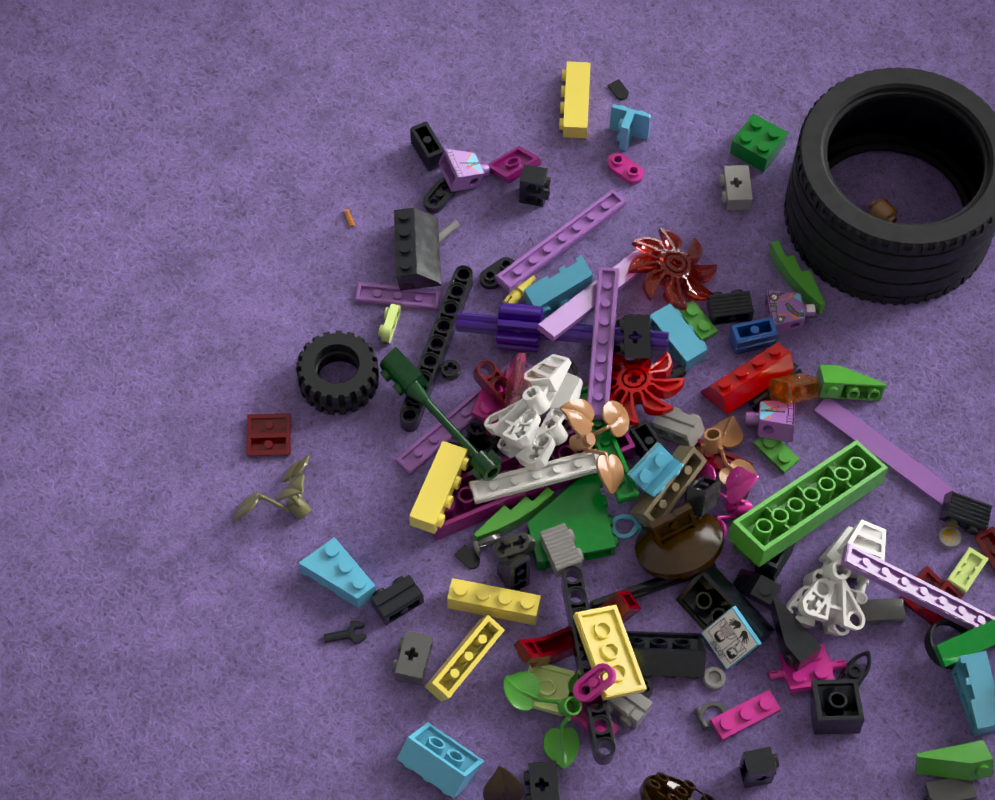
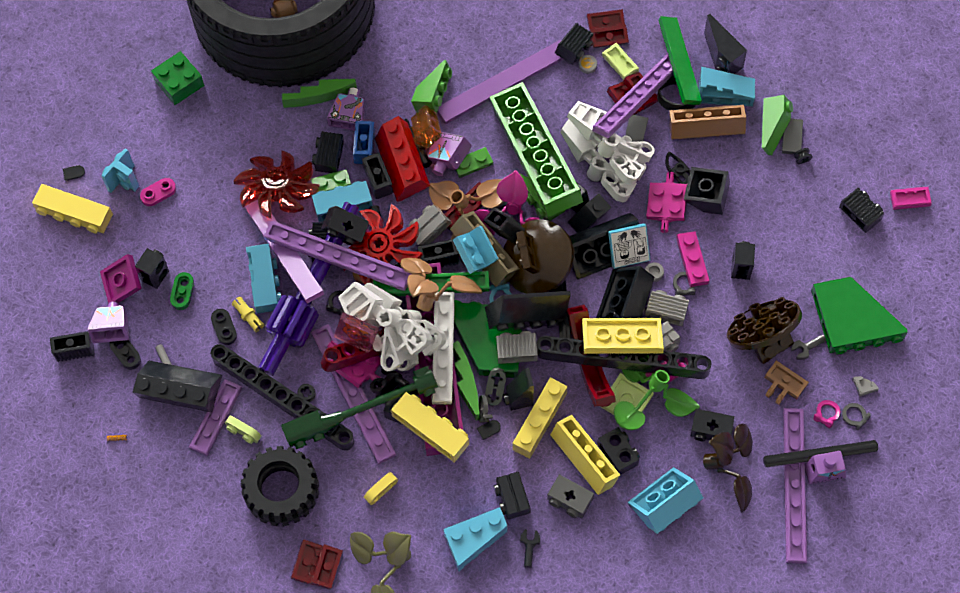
camera: 70 degrees left, 5 degrees up
(366, 469) = (380, 488): none -> light yellow beam
(476, 691) = (614, 453): none -> black brick
(522, 223) = (182, 292): none -> green plate
(560, 241) = (213, 265): medium lavender tile -> none
(594, 680) = (651, 351): dark pink plate -> none
(606, 547) = (527, 310): none -> black slope
(671, 701) = (667, 307): none -> light grey brick
(718, 360) = (377, 175): none -> black brick
(737, 187) = (214, 109): light grey brick -> none
(794, 641) = (645, 200): black slope -> none
(925, 684) = (707, 122): none -> medium nougat brick

